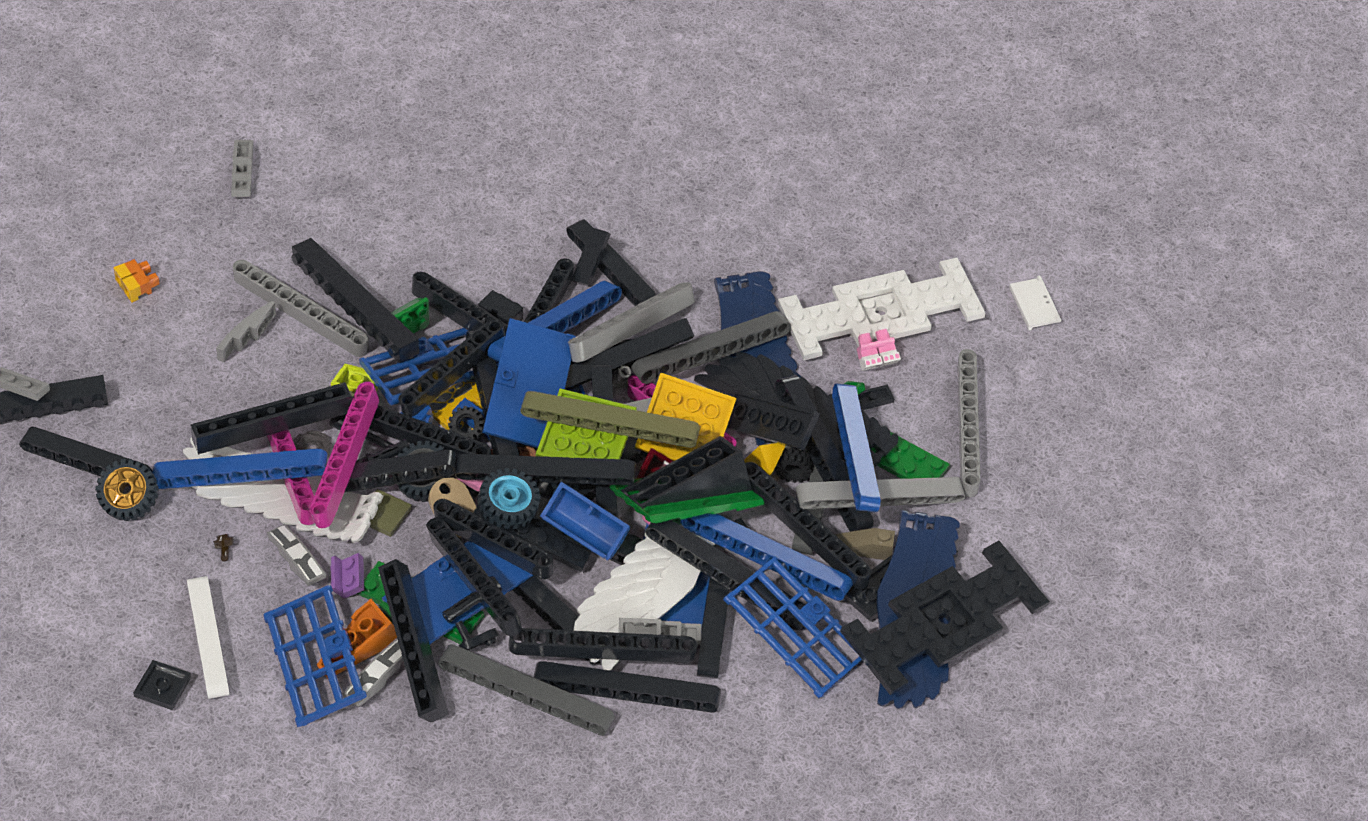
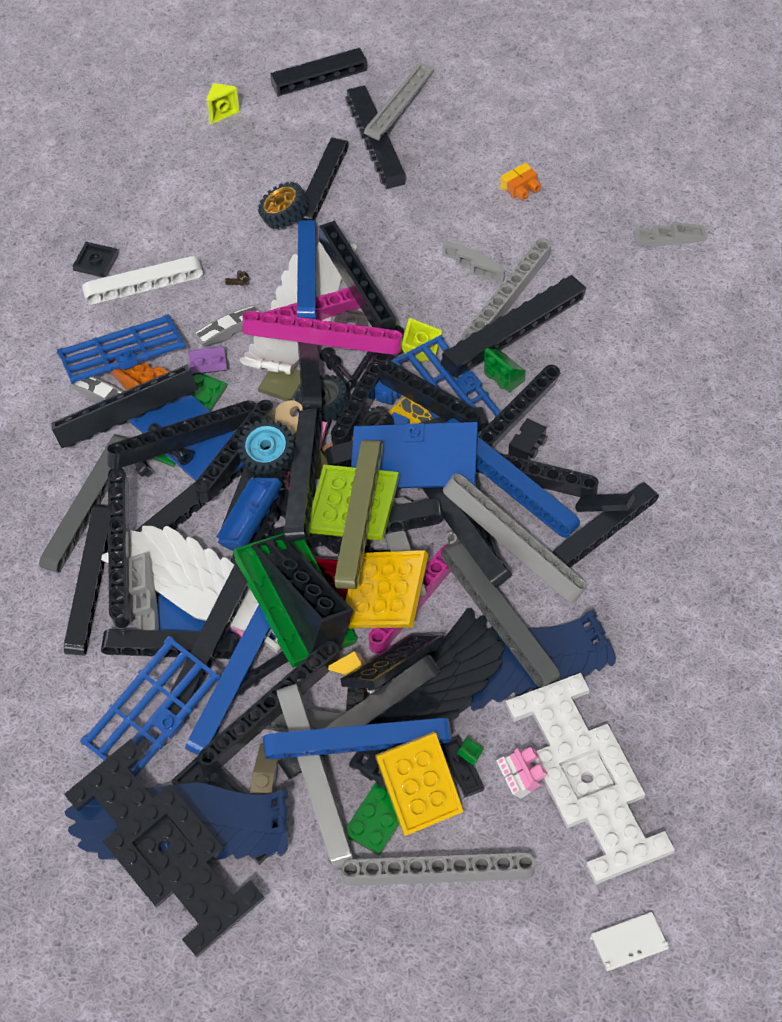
camera: 90 degrees right, 5 degrees up
(892, 417) = (419, 783): none -> yellow plate

